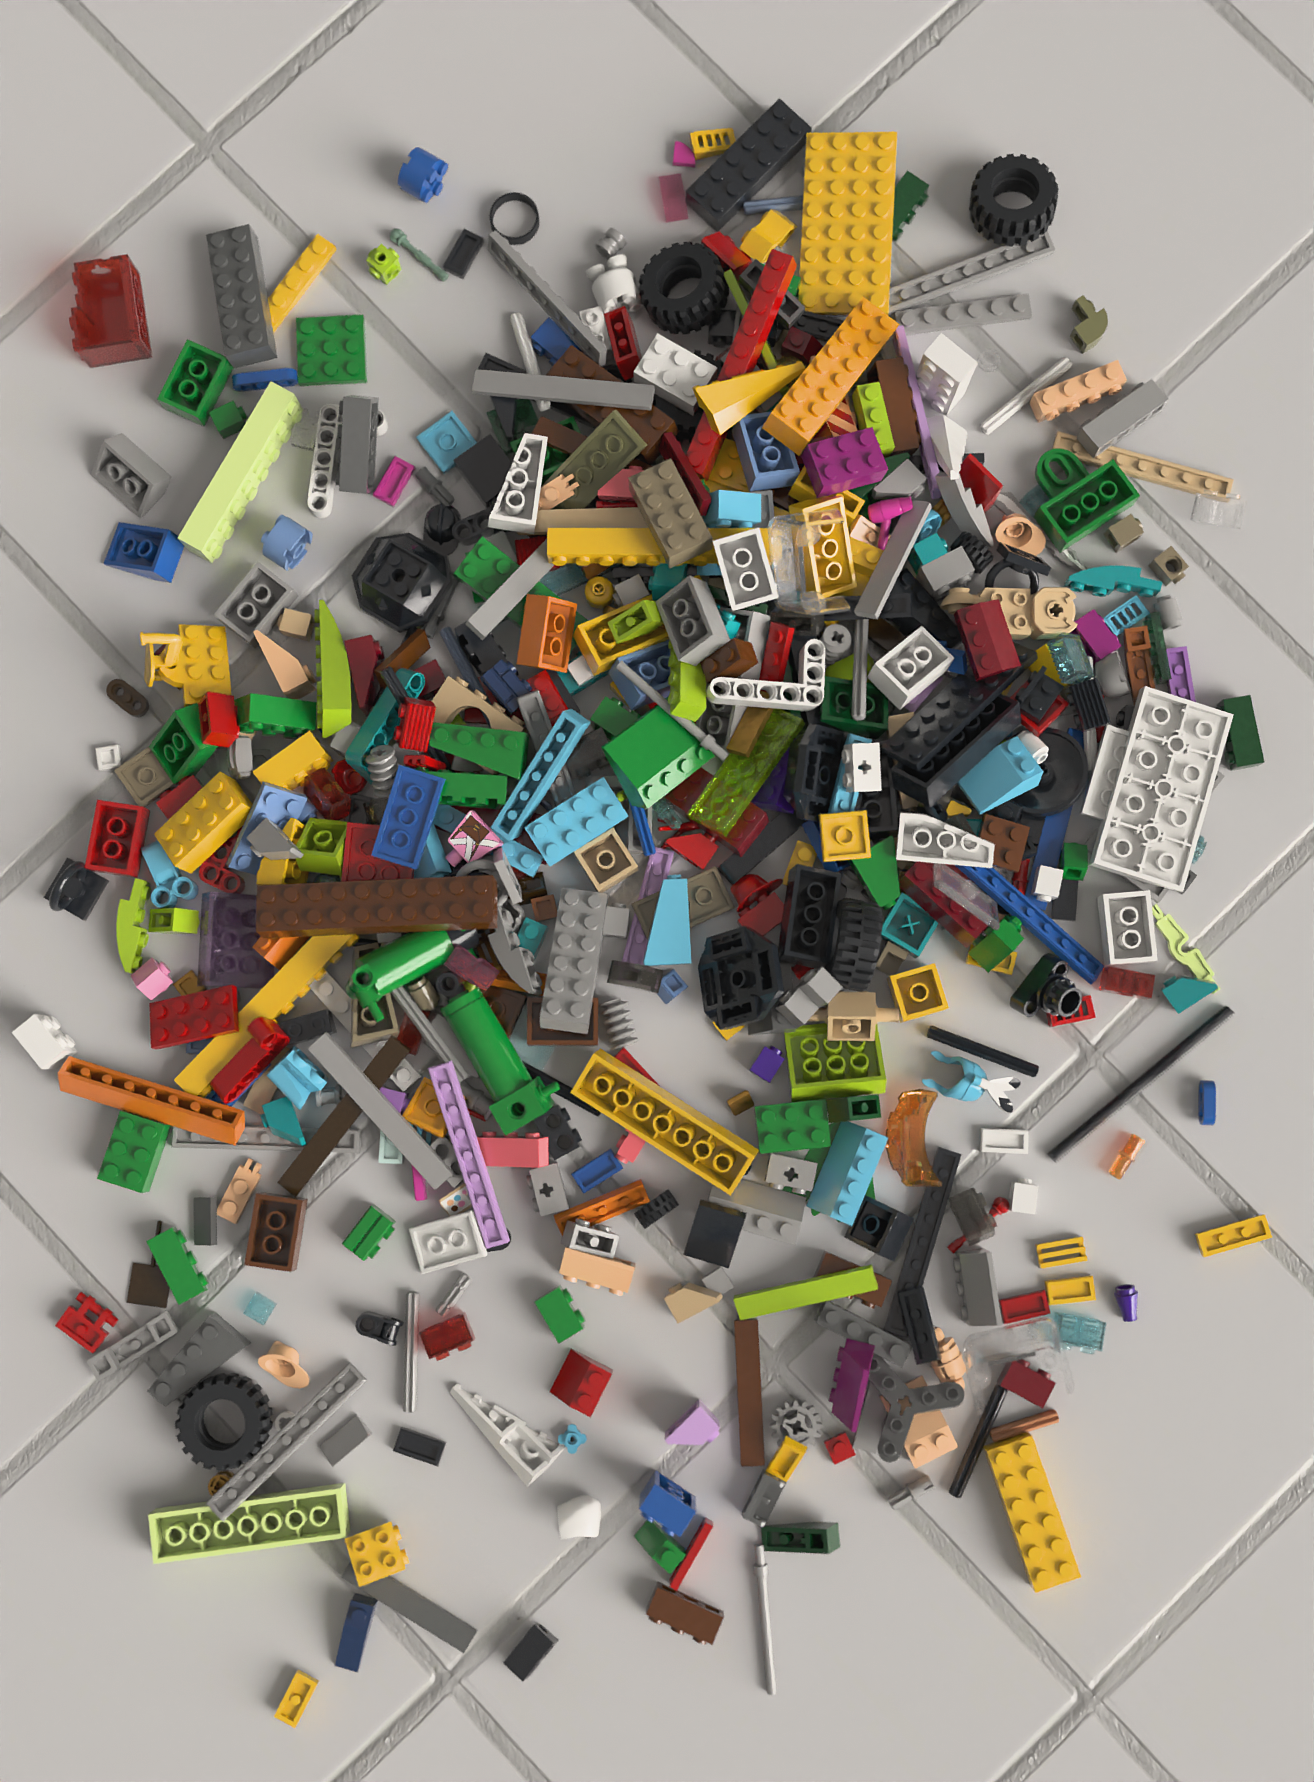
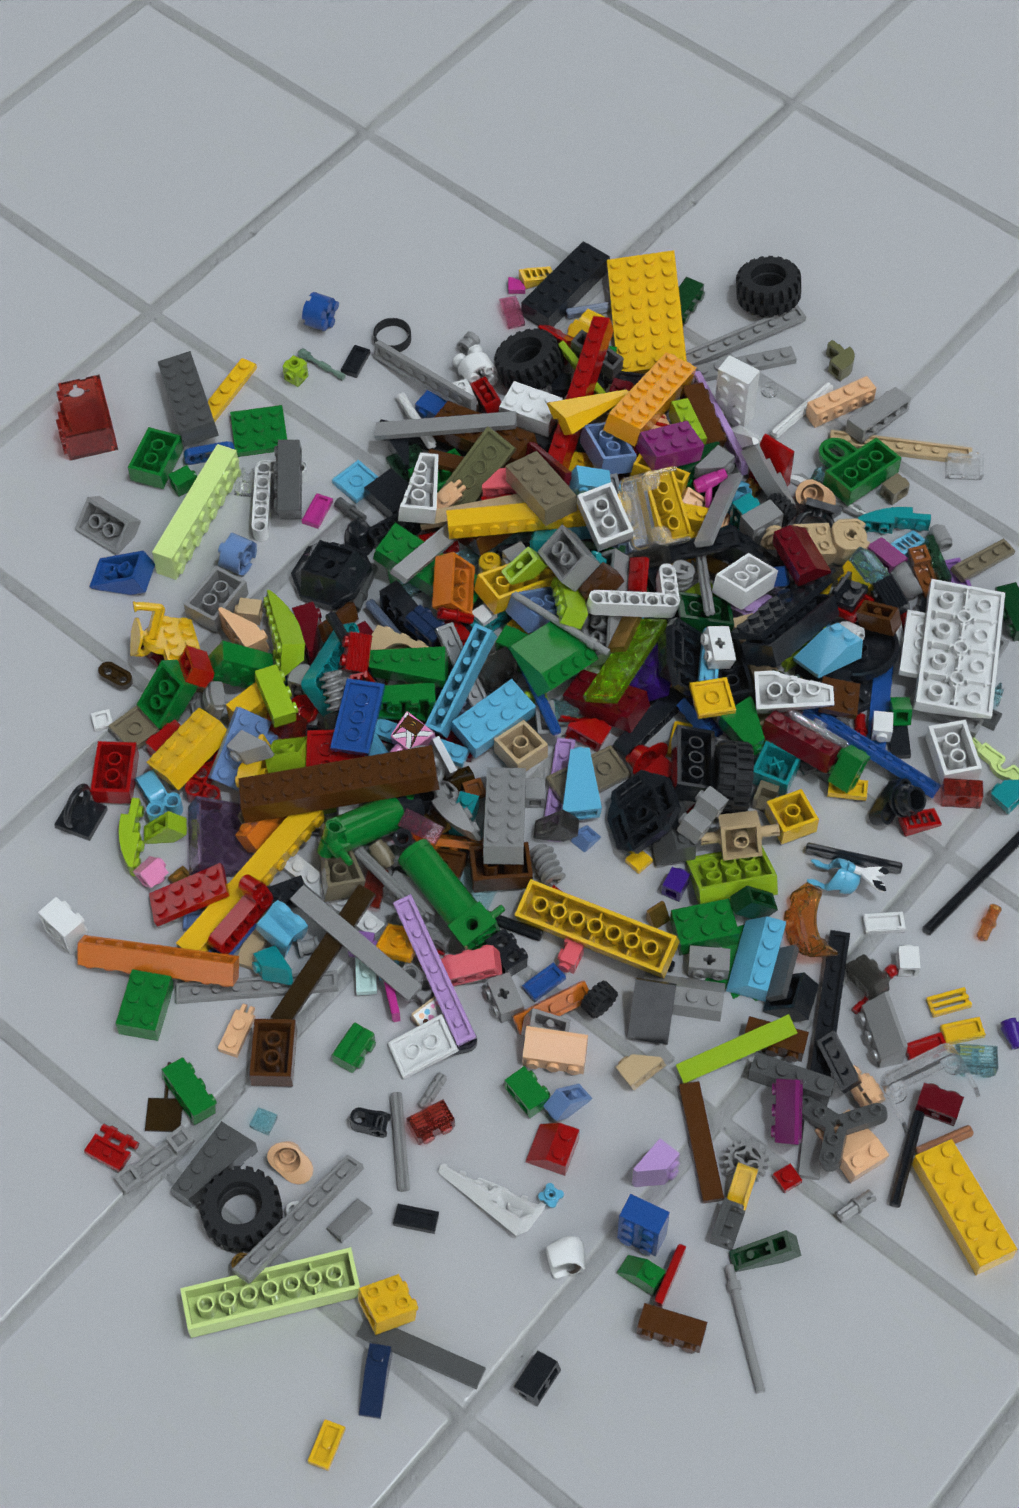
camera: 10 degrees left, 25 degrees down
(205, 1221) = (210, 1054): dark grey tile -> none
(312, 771) = (276, 695): none -> lime brick
(544, 677) = (455, 615): none -> red axle
(605, 1329) = (566, 1101): none -> medium blue slope
(874, 1201) = (782, 973): none -> dark grey tile
(1069, 737) = (879, 617): none -> reddish brown brick
(1171, 557) = (934, 505): dark tan brick -> none
(1214, 653) = (982, 560): none -> dark tan tile

